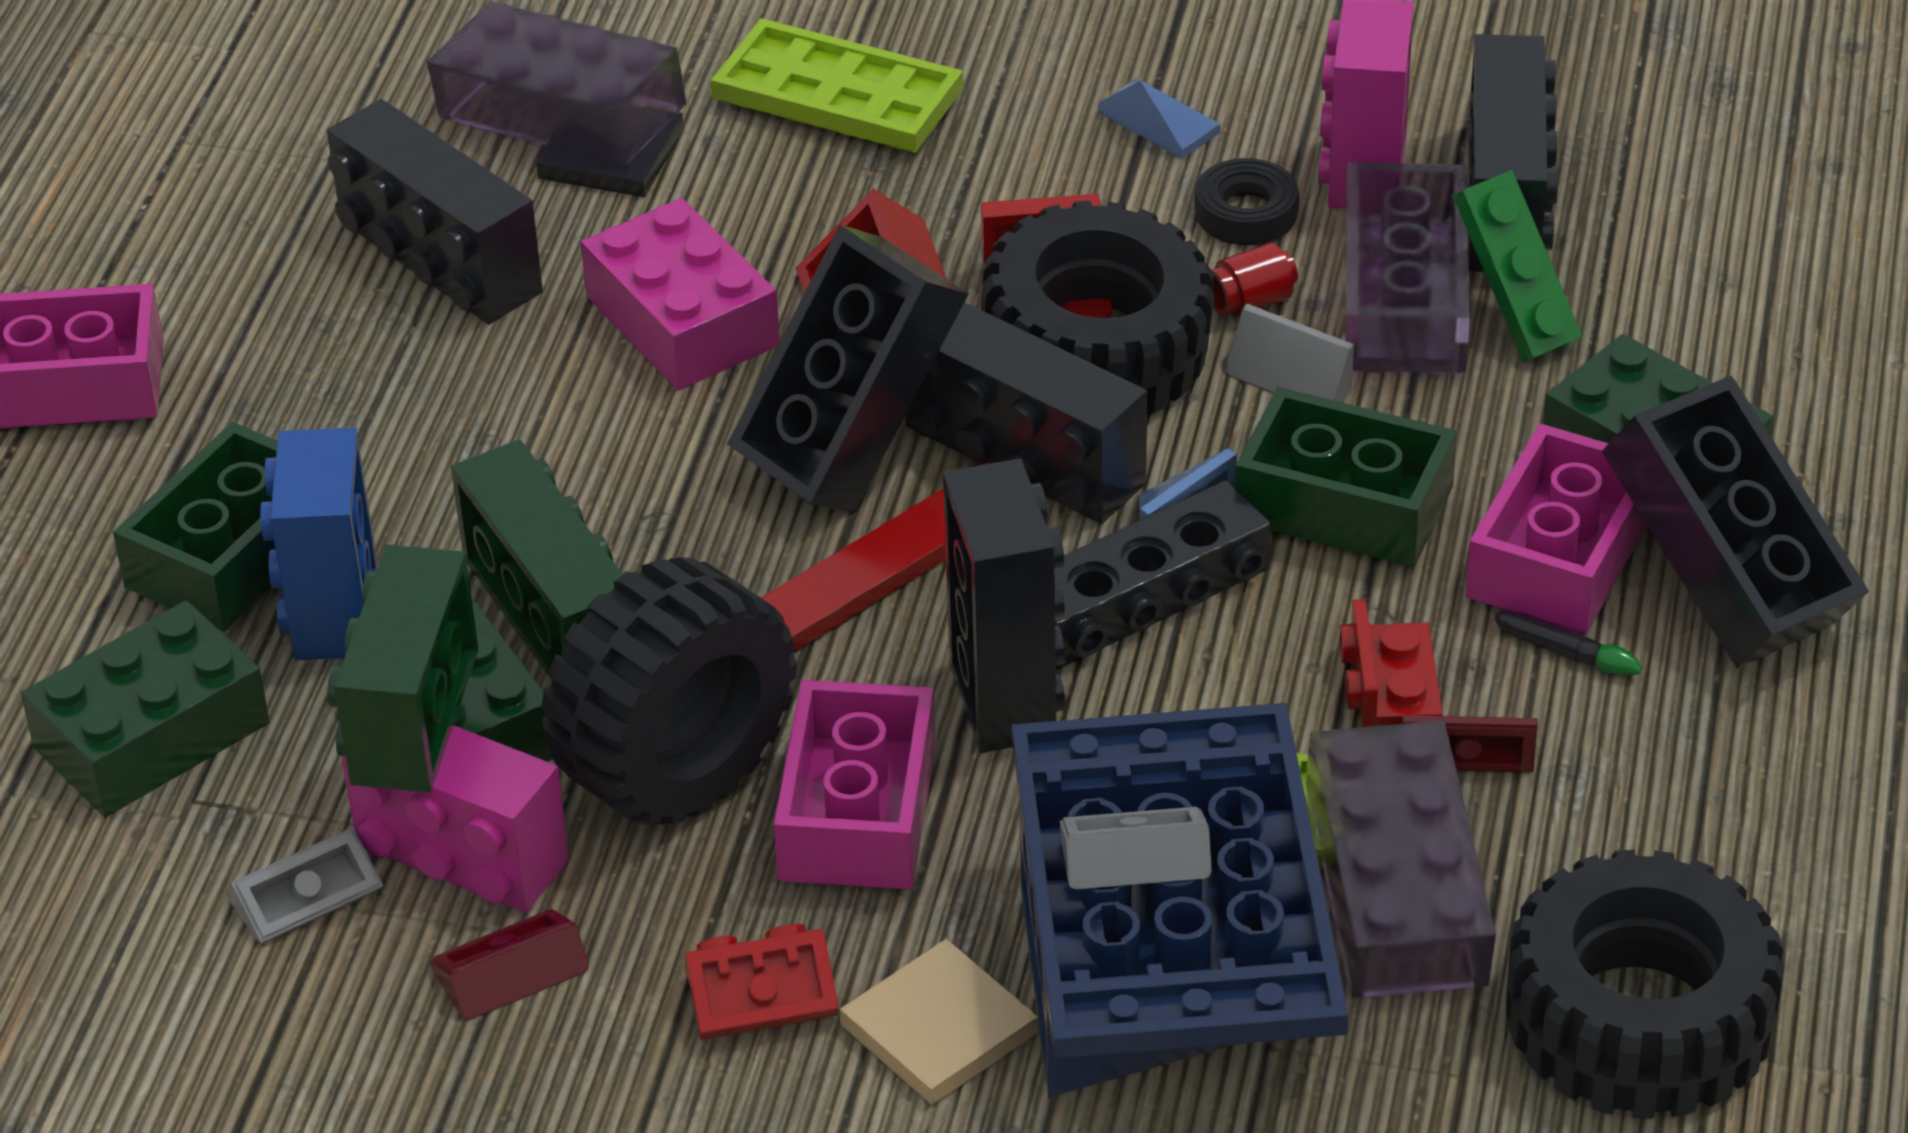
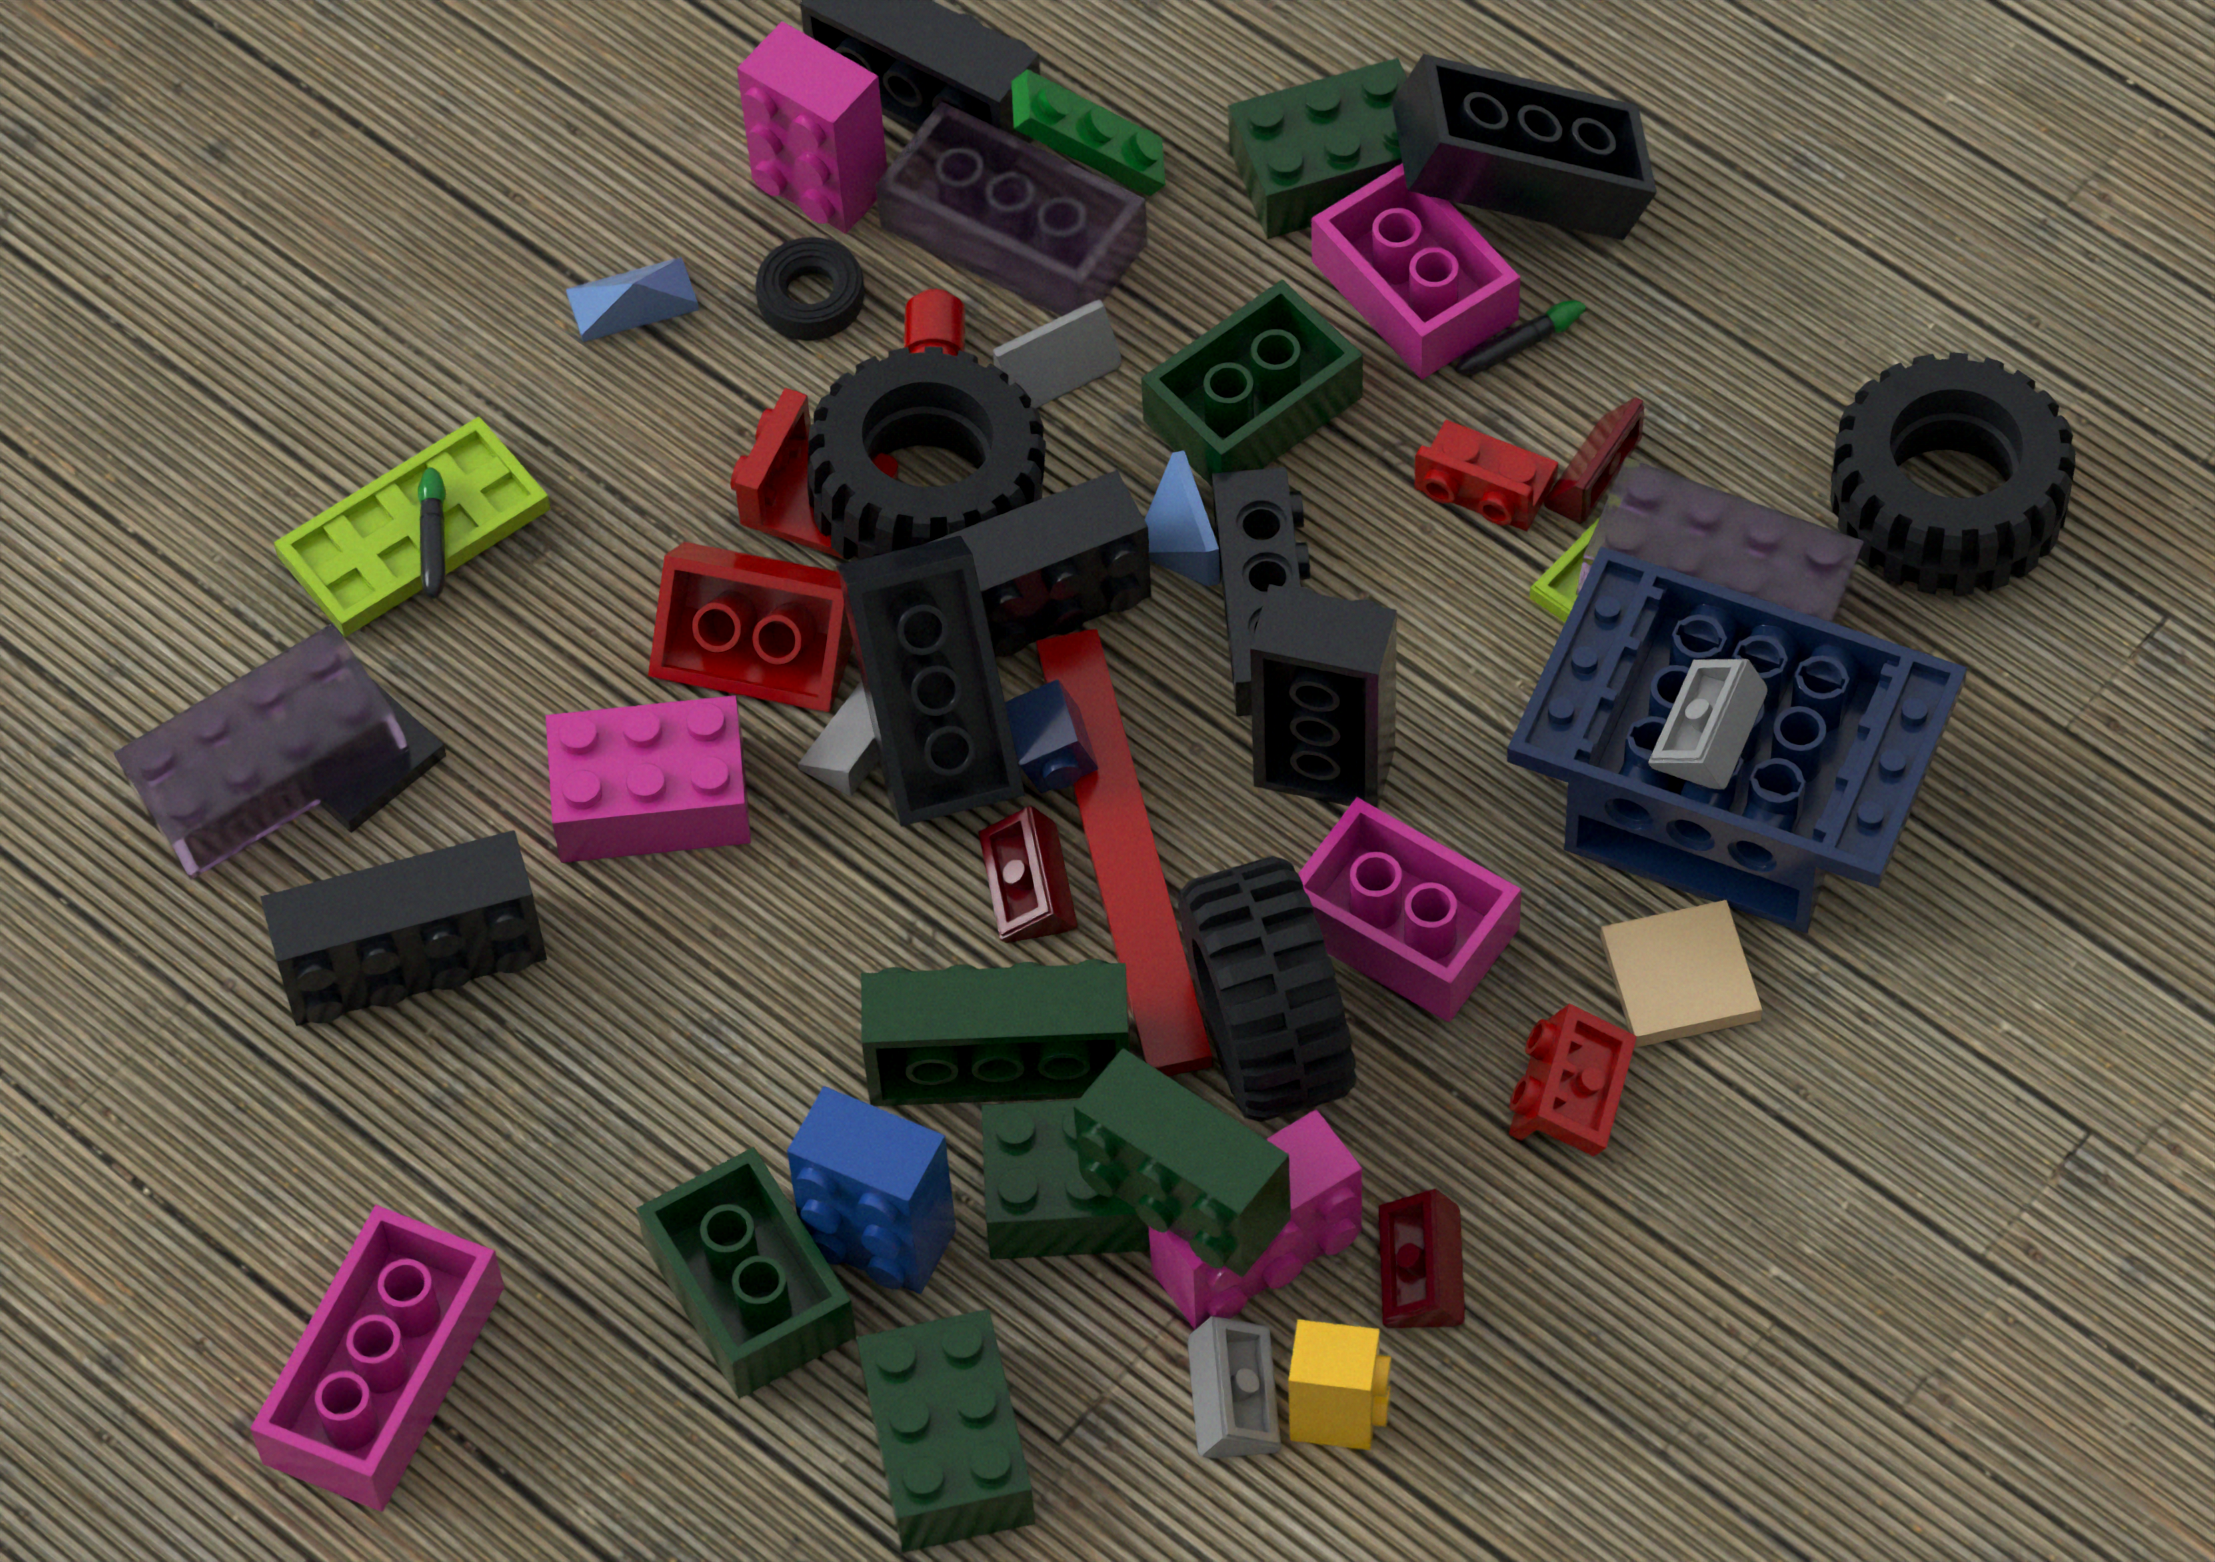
camera: 60 degrees left, 15 degrees up
(312, 922) = (1337, 1385): none -> yellow brick
(765, 550) = (1027, 876): none -> dark red slope
(856, 71) = (432, 537): none -> black piece
(878, 492) = (1050, 737): none -> dark blue brick

